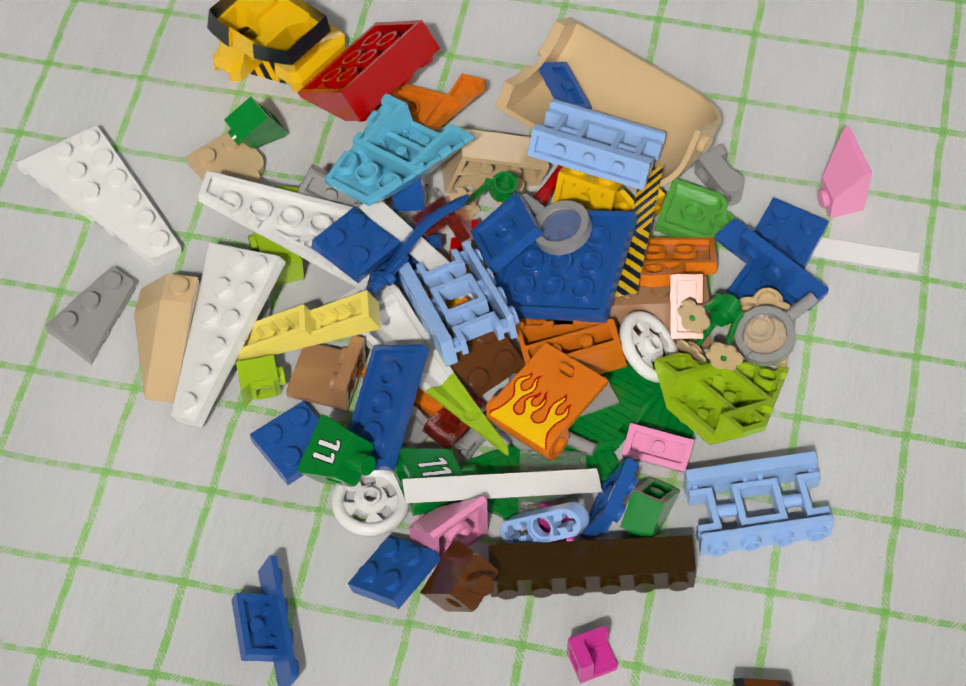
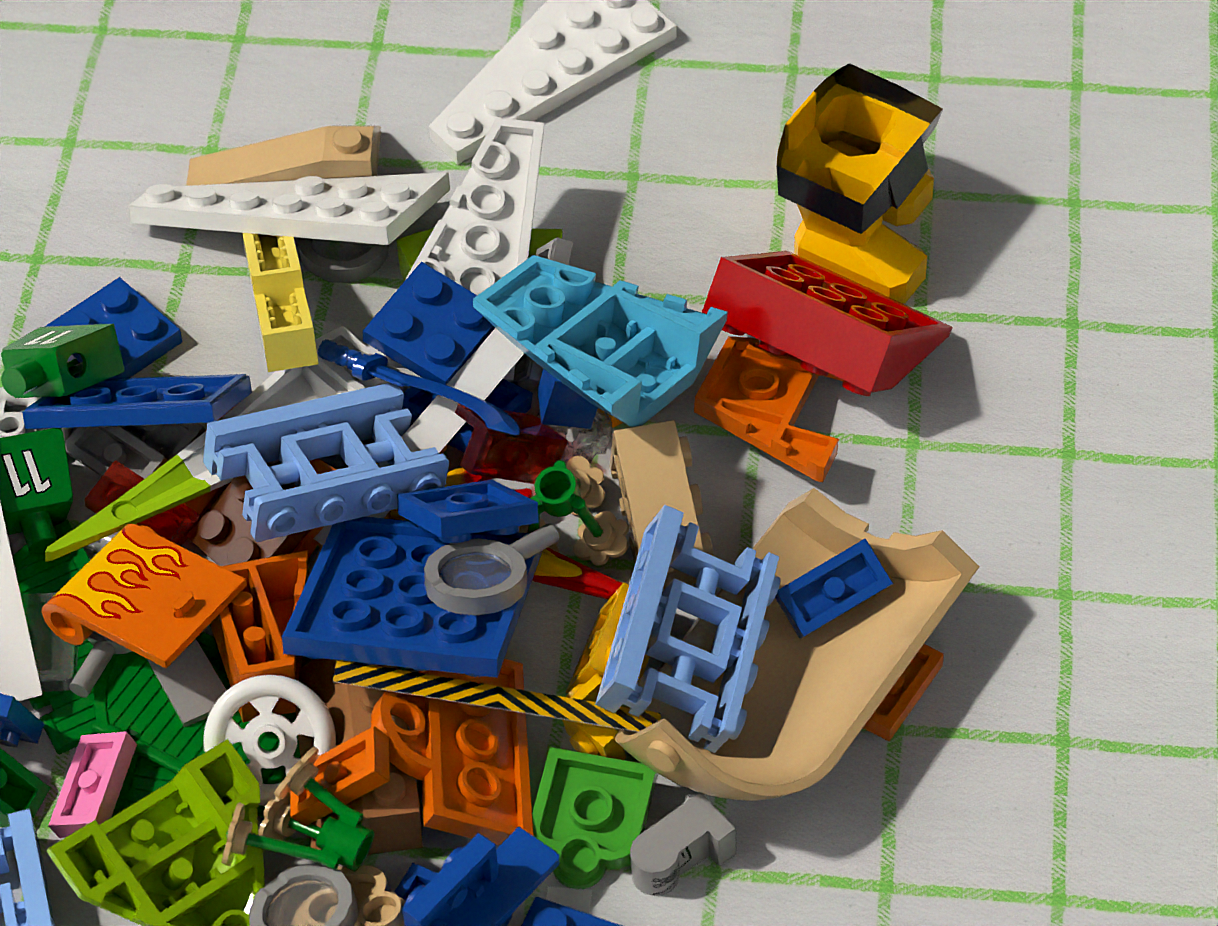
camera: 85 degrees right, 5 degrees down
(90, 315) = (332, 79): light grey wing -> none
(227, 158) = (626, 190): tan plate -> none
(254, 124) = (685, 194): green slope -> none
(260, 378) = (210, 270): lime window -> none
(328, 374) = (217, 345): medium nougat bracket -> none

